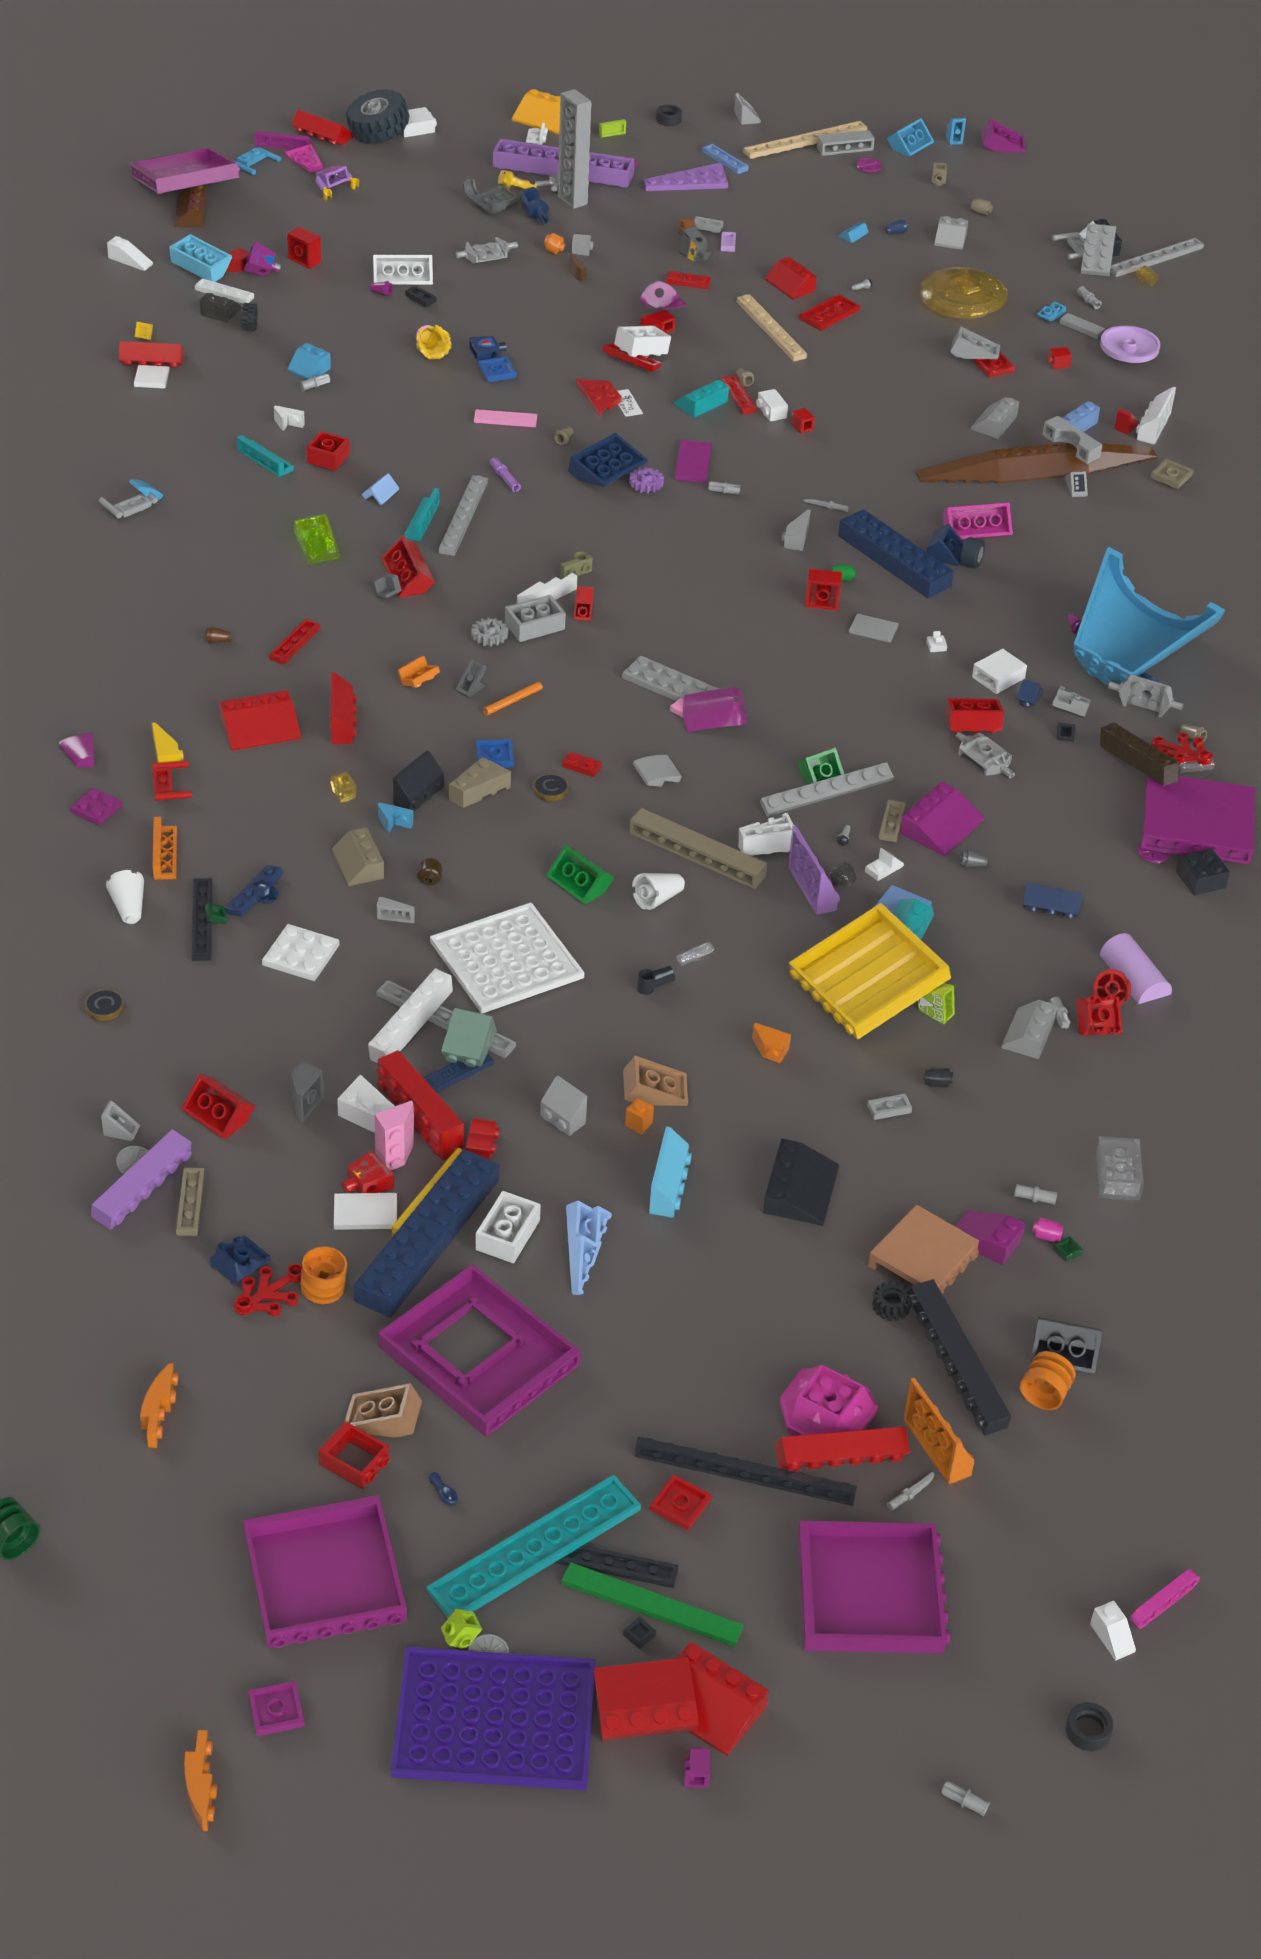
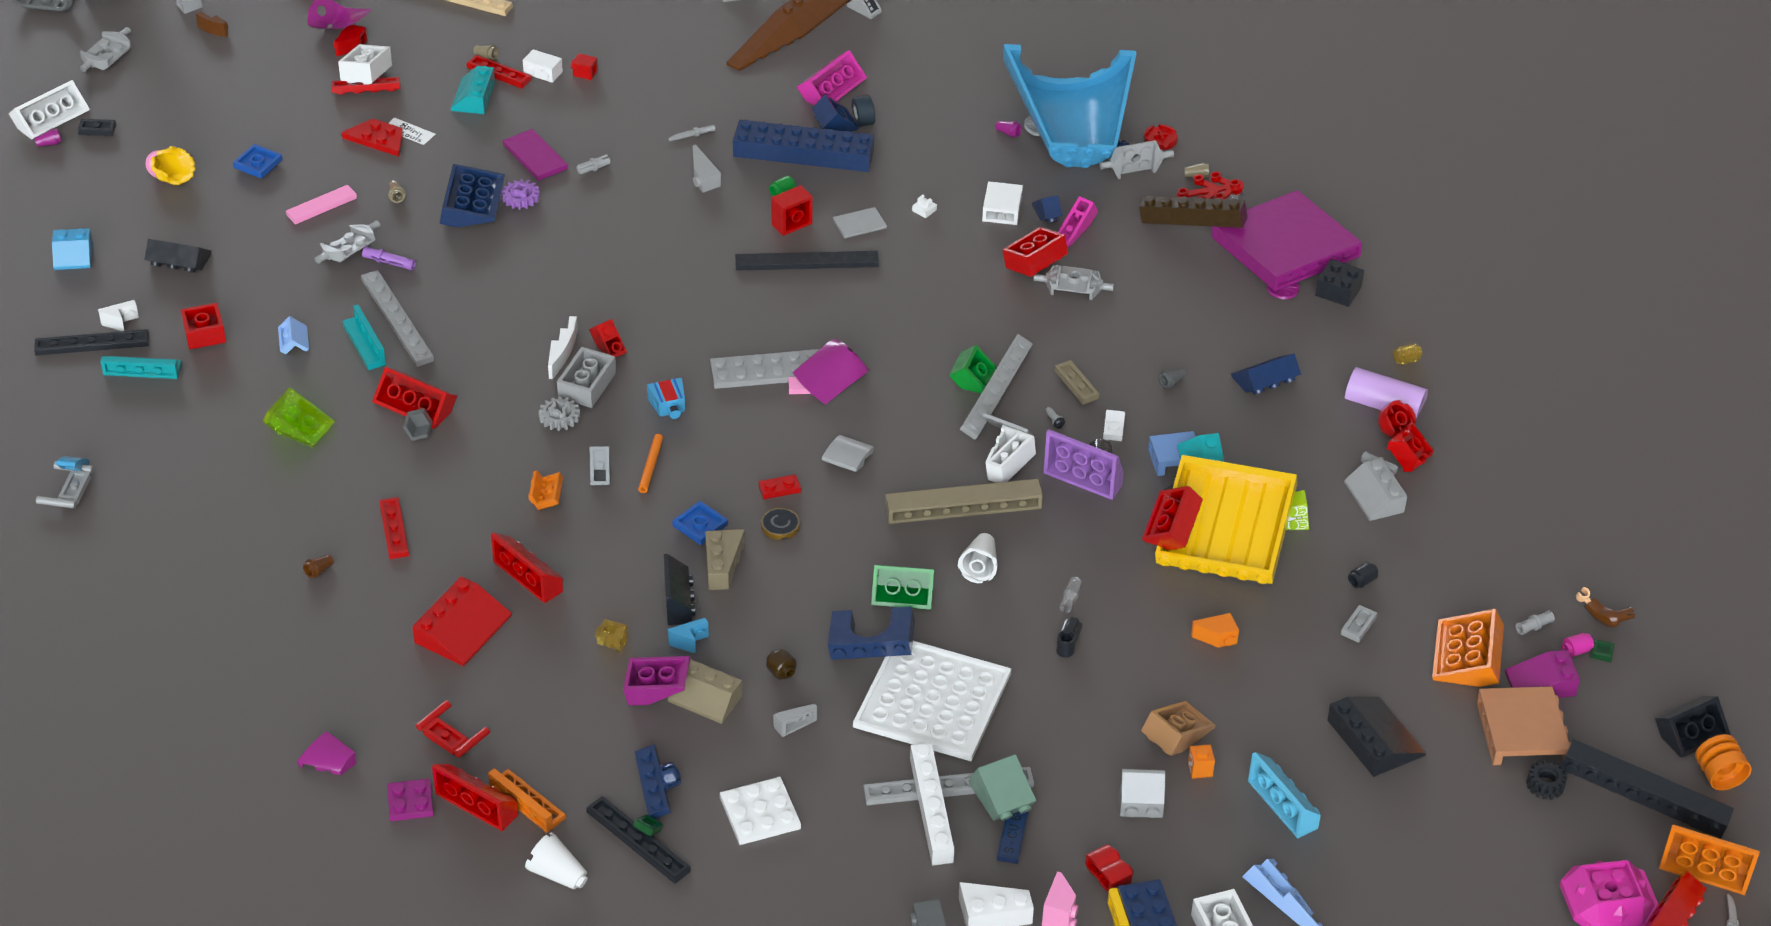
camera: 40 degrees left, 0 degrees up
(133, 825) = (474, 796): none -> red slope
(165, 746) = (407, 702): yellow slope -> none
(254, 426) = (91, 342): none -> black tile
(314, 382) = (99, 266): light grey axle -> none
(327, 824) = (655, 678): none -> magenta slope
(369, 400) = (176, 255): none -> black slope
(432, 1116) = (1033, 870): red brick -> none
(485, 348) = (223, 147): dark blue torso -> none
(488, 452) = (349, 244): none -> light grey plate
(521, 902) = (894, 641): none -> dark blue arch
(554, 243) = (162, 11): orange head -> none
(578, 663) = (667, 397): none -> dark azure torso
(580, 565) = (559, 305): olive plate -> none
(795, 818) = (999, 422): none -> light grey piece
(799, 631) = (806, 260): none -> black tile
(823, 943) = (1173, 518): none -> red slope
(941, 819) = (1110, 358): magenta slope -> none
(954, 1178) = (1469, 649): none -> orange slope
(1040, 715) = (1078, 220): none -> dark pink slope
(1065, 732) = (1107, 226): black slope -> none
(1071, 702) = (1070, 197): light grey slope -> none
(1100, 1223) = (1603, 614): none -> reddish brown arm
(1119, 1168) = (1567, 560): clear brick -> none
(1192, 952) = (1407, 353): none -> clear yellow brick
(1198, 695) = (1163, 135): none -> red tile

